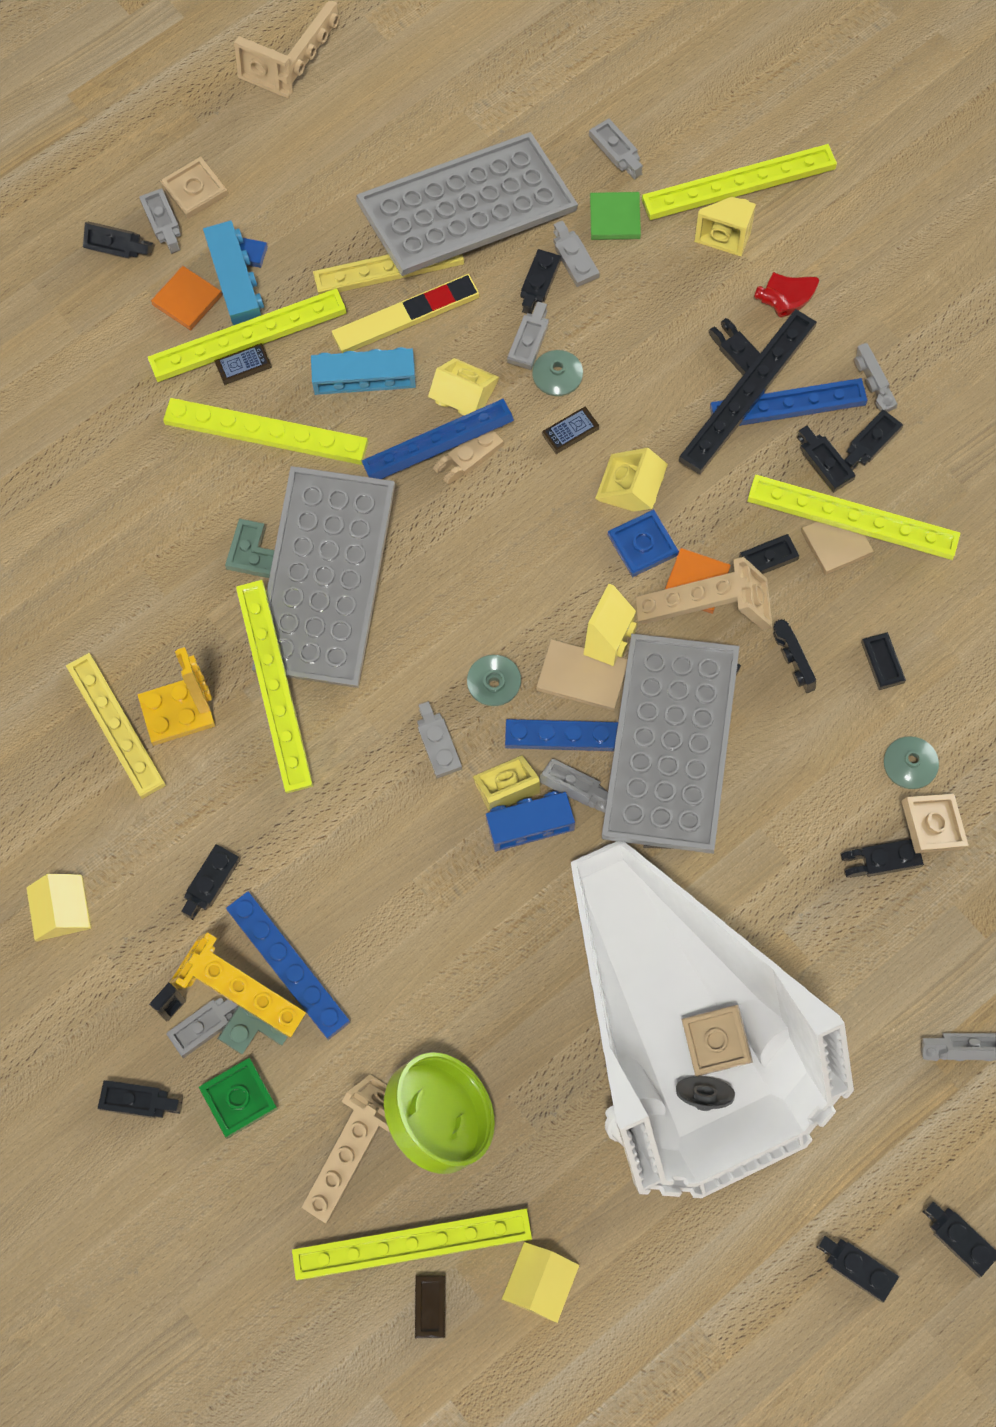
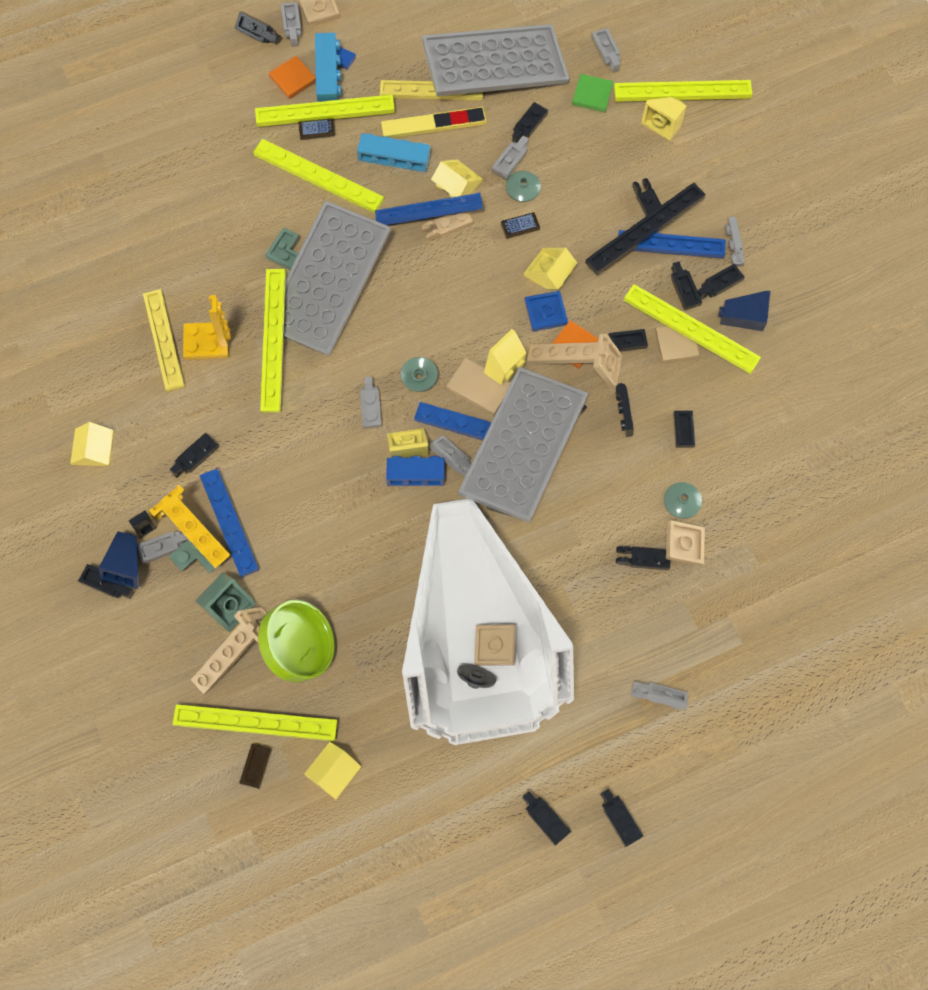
camera: 10 degrees right, 0 degrees up
(154, 1064) = (121, 561): none -> dark blue slope
(238, 1098) = (170, 598): green plate -> none
(317, 1081) = (224, 600): none -> sand green slope
(574, 255) = (557, 112): light grey hinge -> none
(787, 293) = (693, 171): red arm -> none
(920, 473) = (746, 311): none -> dark blue slope

